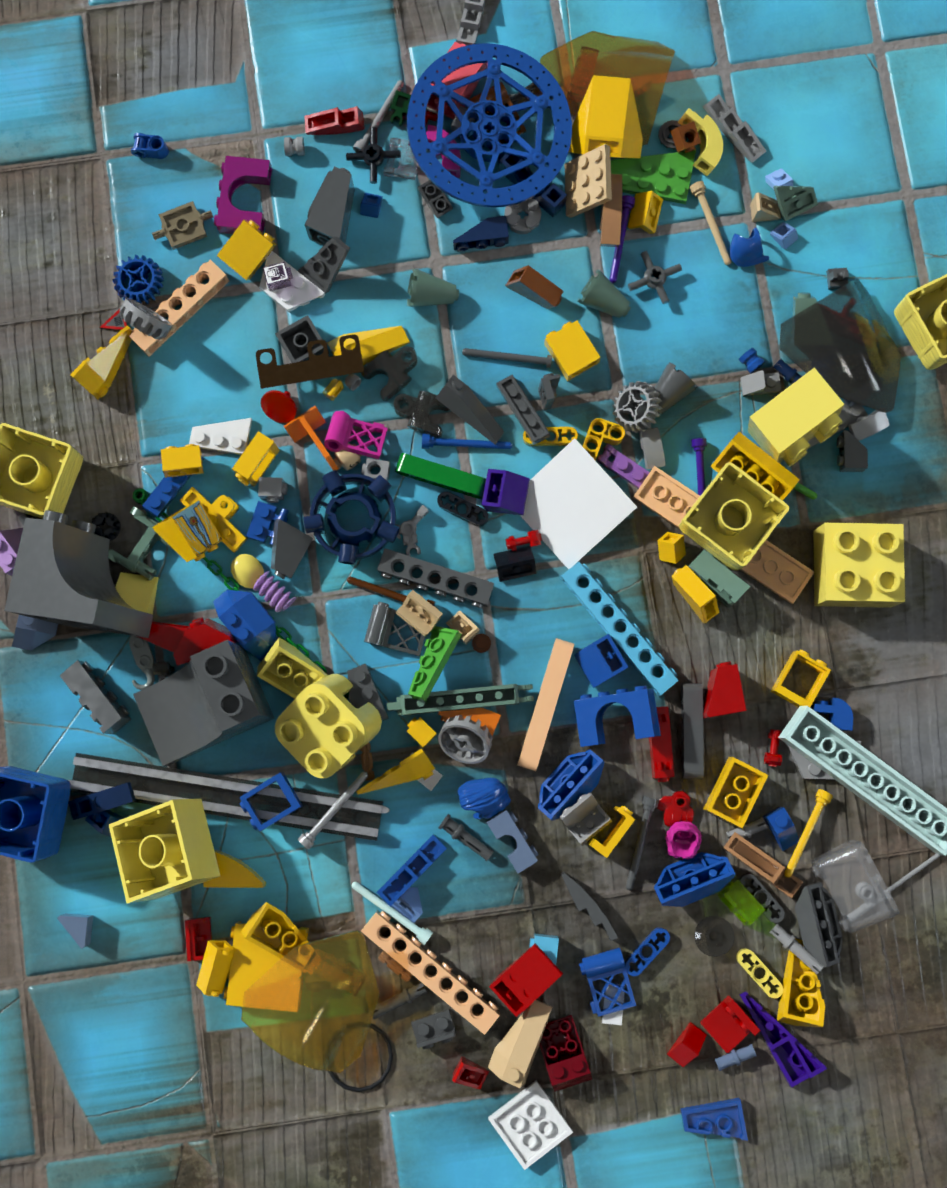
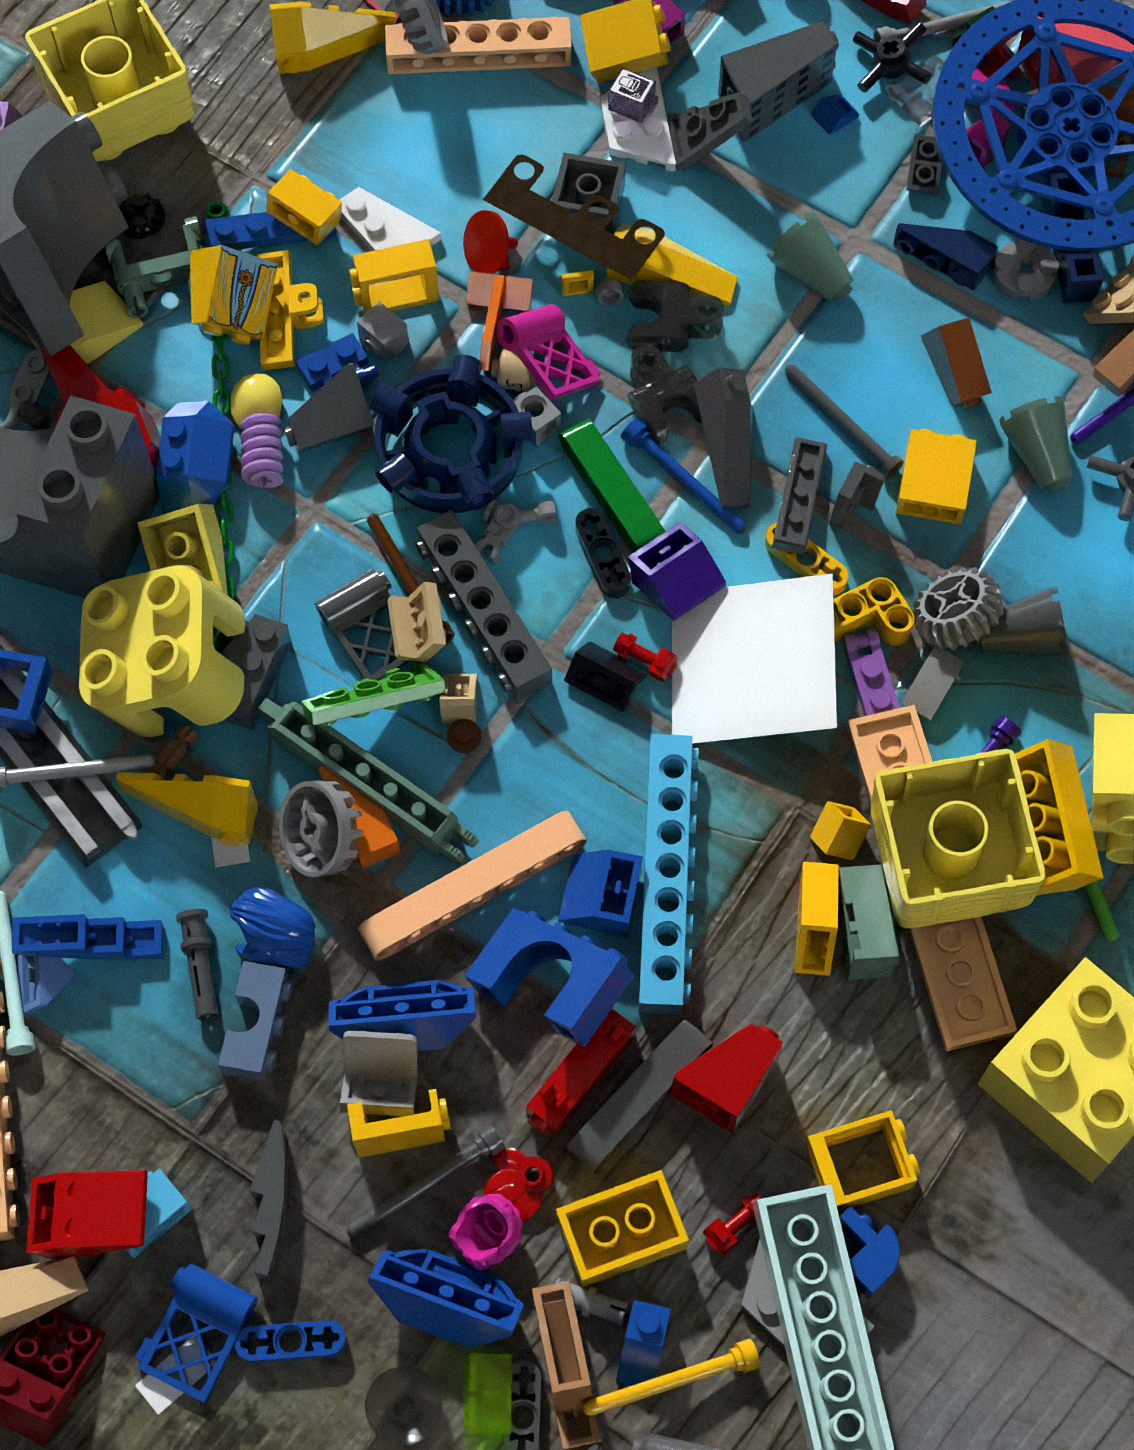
camera: 40 degrees right, 15 degrees down
(421, 731) = (274, 775): yellow brick -> none

